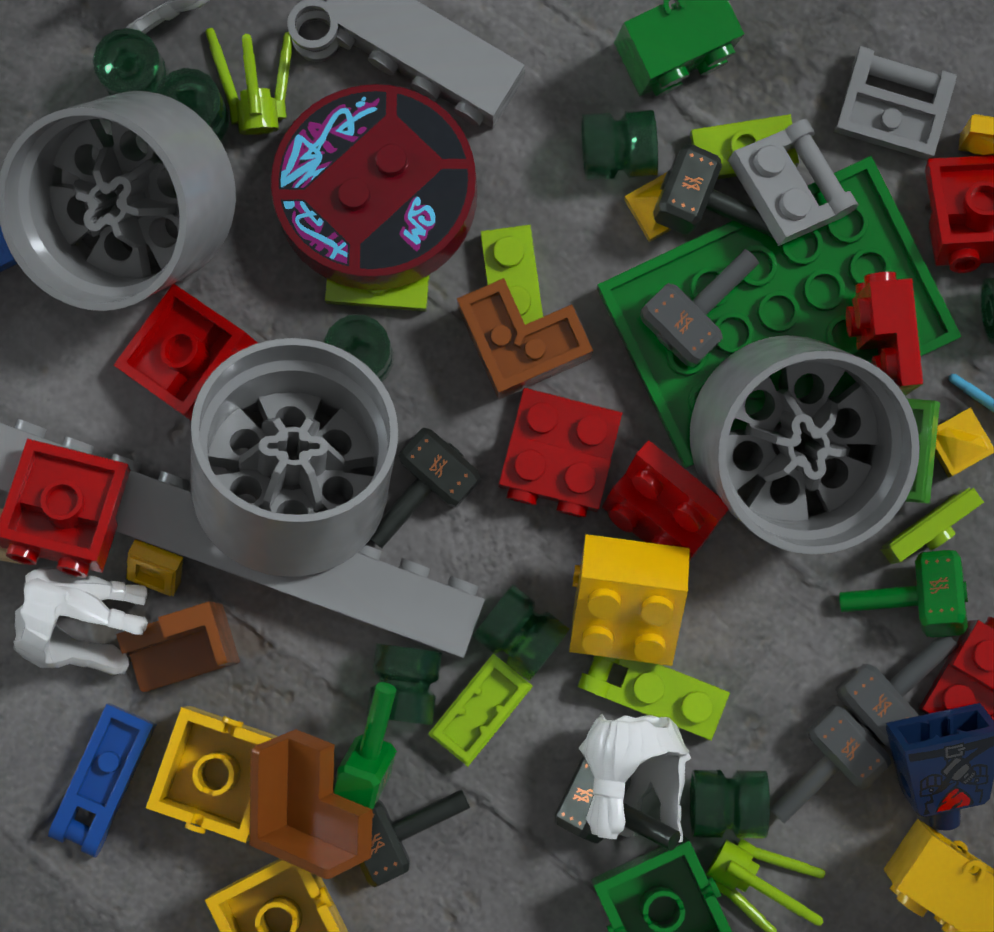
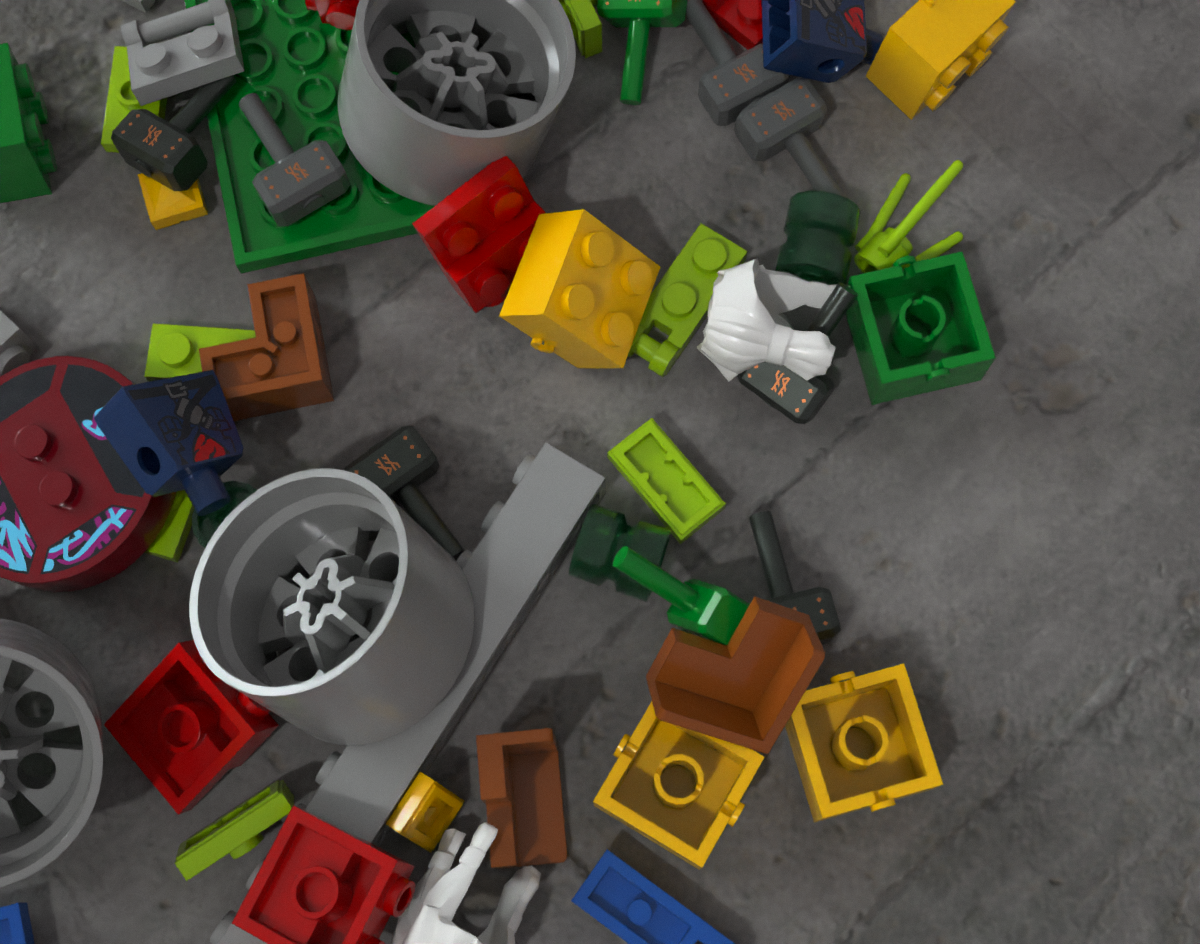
camera: 75 degrees left, 10 degrees down
(110, 415) = (235, 831): none -> lime plate
(411, 287) = (175, 437): none -> dark blue torso
(521, 632) = (592, 416): clear green wheel -> none
(560, 452) = (407, 344): red plate -> none
(619, 145) = (92, 213): clear green wheel -> none

